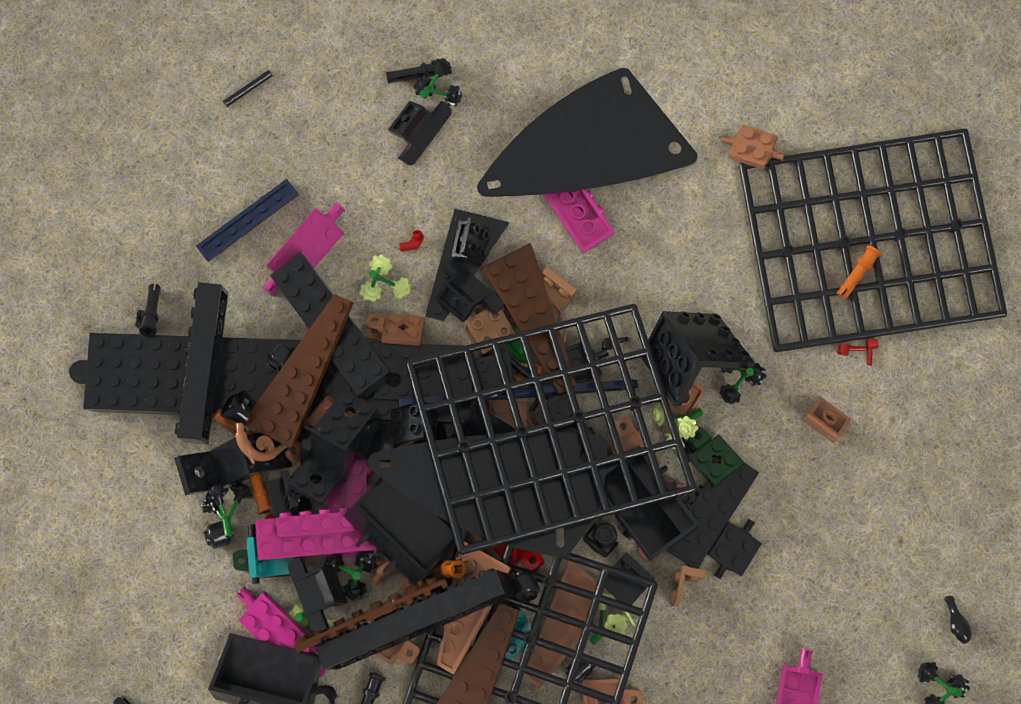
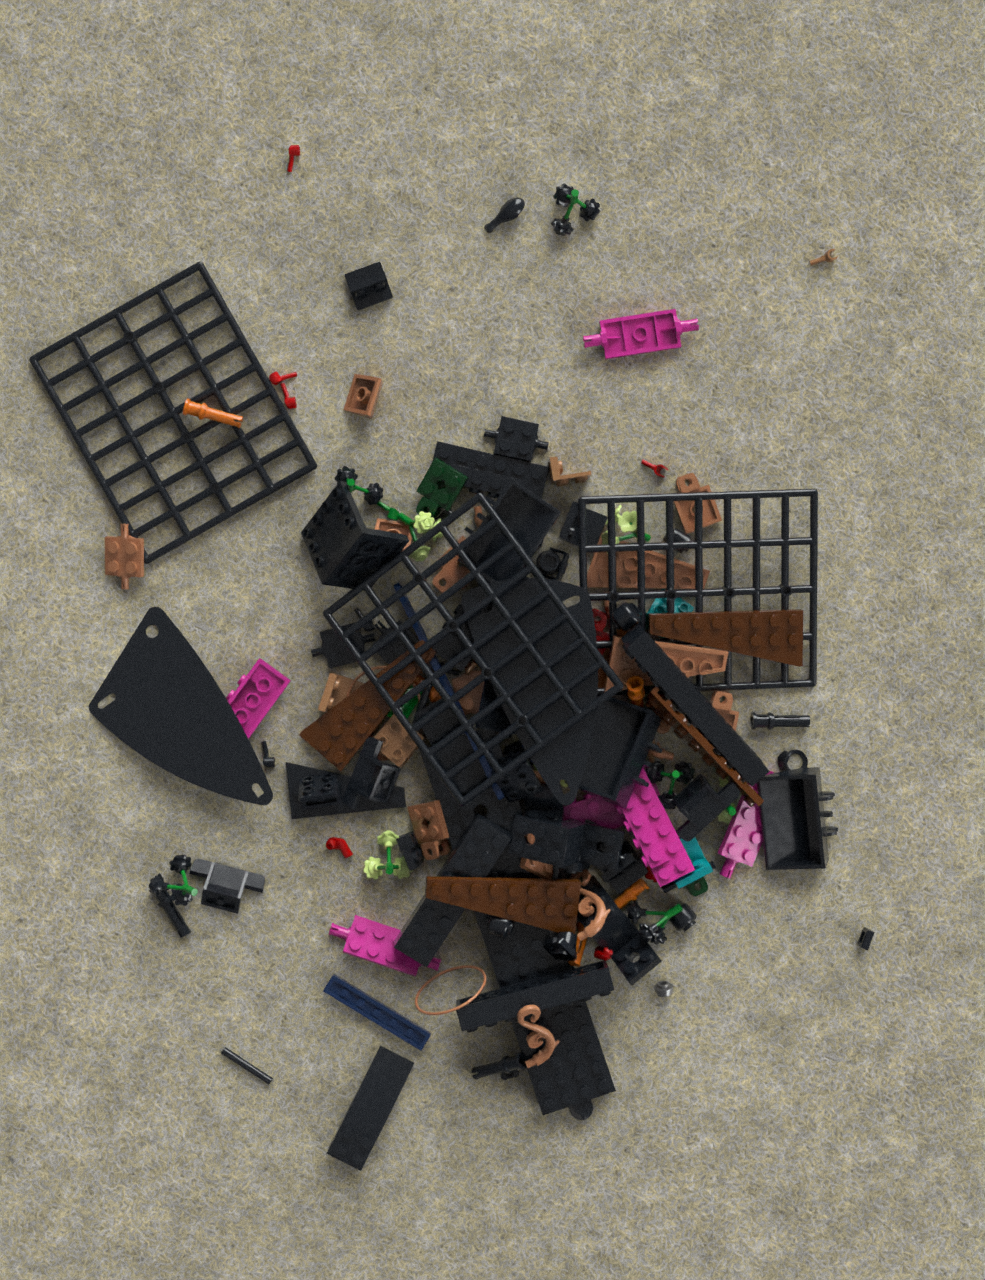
camera: 115 degrees left, 10 degrees up
(158, 491) = (663, 988): none -> flat silver plate
(163, 181) = (370, 1108): none -> black slope
(163, 349) = (534, 1038): none -> nougat plant
(214, 444) = (602, 954): none -> red arm
(221, 290) = (458, 1007): none -> nougat piece
(383, 304) = (412, 853): none -> black plate
(516, 206) = (267, 761): none -> black hand
(596, 303) = (335, 650): none -> black plate
(657, 674) = (657, 468): none -> red hand
(705, 406) = (392, 514): none -> green hand
(931, 463) = (368, 286): none -> black bracket

